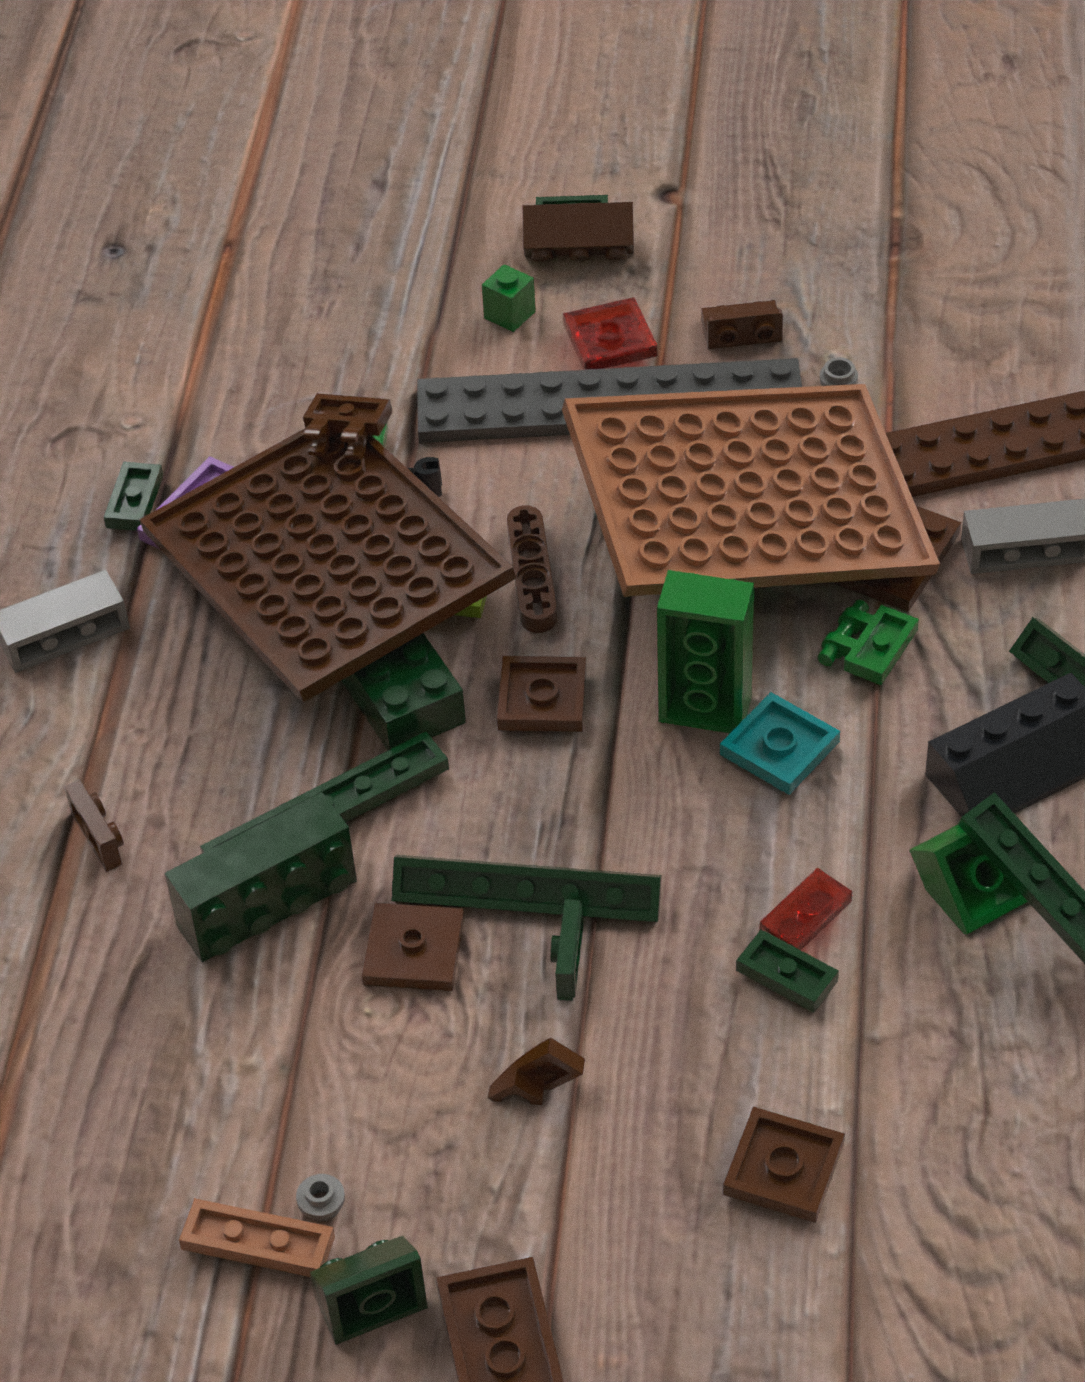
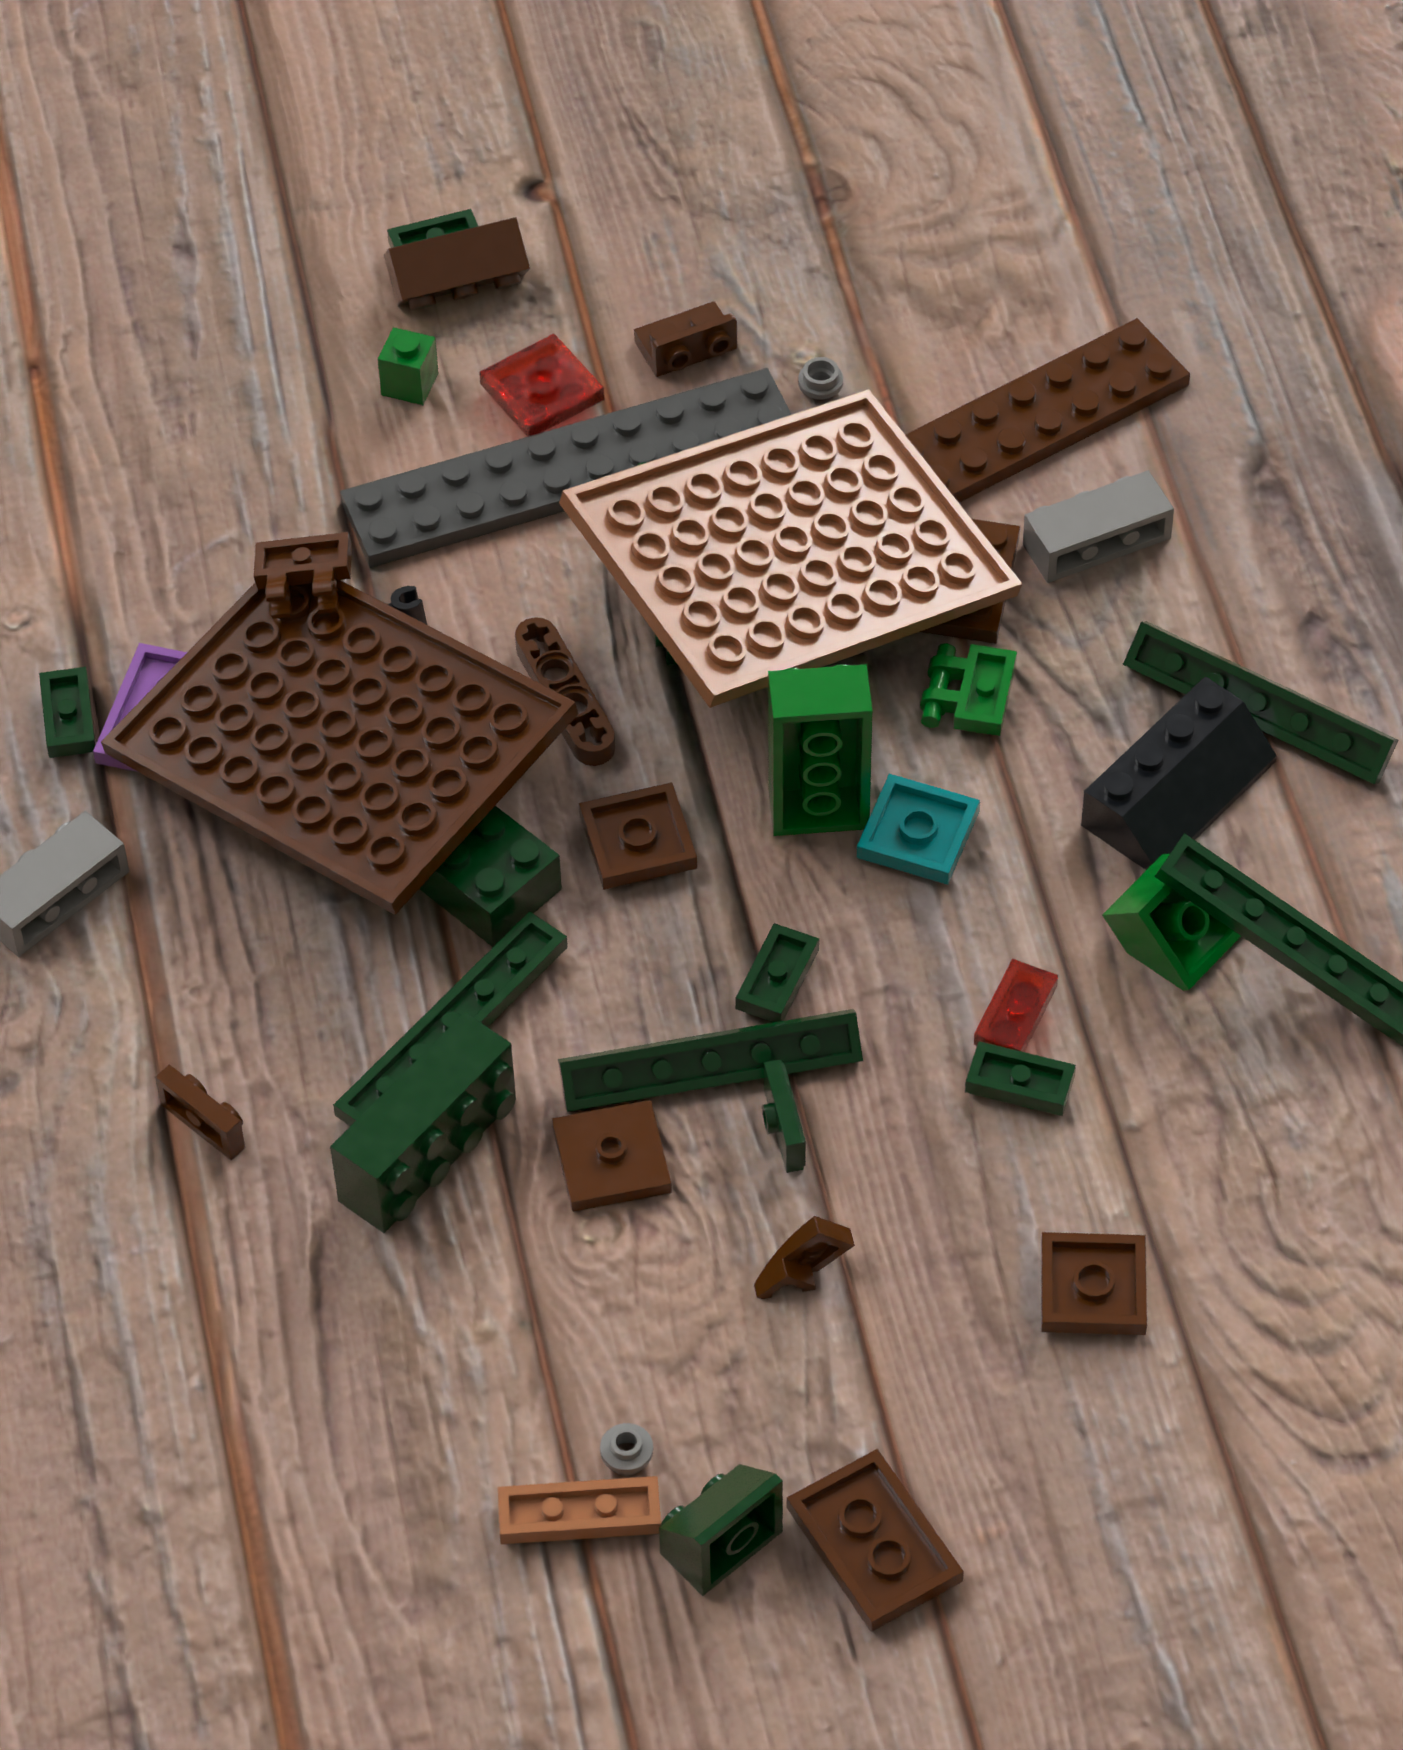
camera: 20 degrees left, 5 degrees up
(612, 831) = (777, 973): none -> dark green plate

